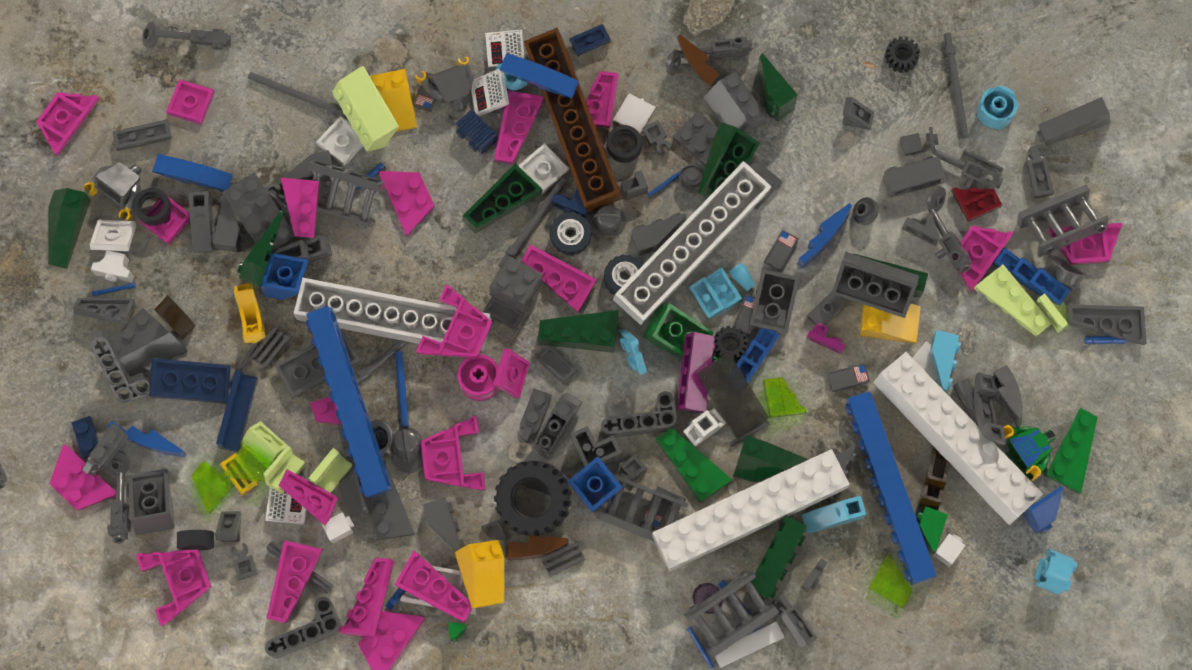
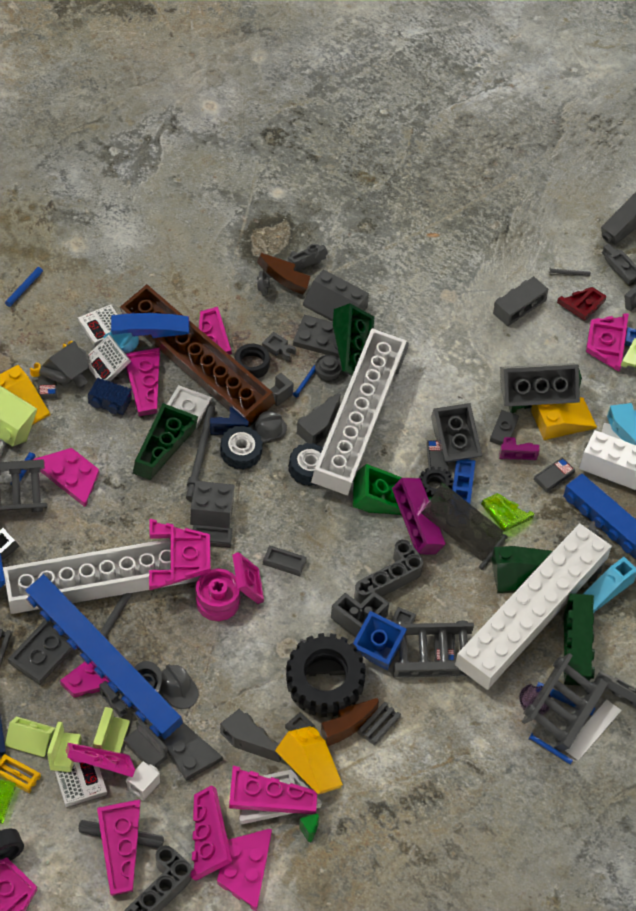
camera: 30 degrees left, 20 degrees down
(229, 527) = (31, 825): dark grey slope -> none
(244, 565) = (62, 854): dark grey plate -> none
(248, 465) = (25, 758): clear neon green wing -> none
(394, 599) = (233, 823): blue wheel -> none
(401, 389) = (145, 636): blue bar -> none
(443, 457) = (219, 680): dark pink wing -> none
(534, 414) = (285, 609): dark grey hinge -> none
(558, 422) = (312, 606): dark grey slope -> none
(566, 281) = (253, 487): dark pink wing -> none
(583, 331) = (294, 522): dark green wedge -> none
(590, 40) = (179, 291): dark blue plate -> none
(630, 345) = (353, 515): medium azure wing -> none
(634, 112) = (246, 334): white piece -> none
(696, 469) = (461, 599): green wing -> none
(704, 427) = (449, 559): white brick -> none
(715, 293) = (399, 449): medium azure slope -> none
(742, 276) = (416, 427): medium azure cone -> none
(777, 93) = (364, 271): dark green slope -> none
(781, 250) = (437, 394): dark grey tile -> none
(812, 580) = (619, 648): dark grey plate -> none
(828, 230) = (469, 368): blue slope -> none
(857, 114) = (444, 271): dark grey slope -> none
(865, 211) = (495, 339): dark grey plate -> none
(902, 64) = (457, 223): black tyre -> none
(911, 144) = (503, 279): dark grey tile -> none
(925, 232) = (555, 338): dark grey slope -> none
(950, 53) = (496, 203): dark grey bar -> none
(950, 242) = (581, 336): dark grey piece -> none
(972, 170) = (565, 279): dark grey piece -> none
(997, 117) = (560, 226): medium azure brick -> none

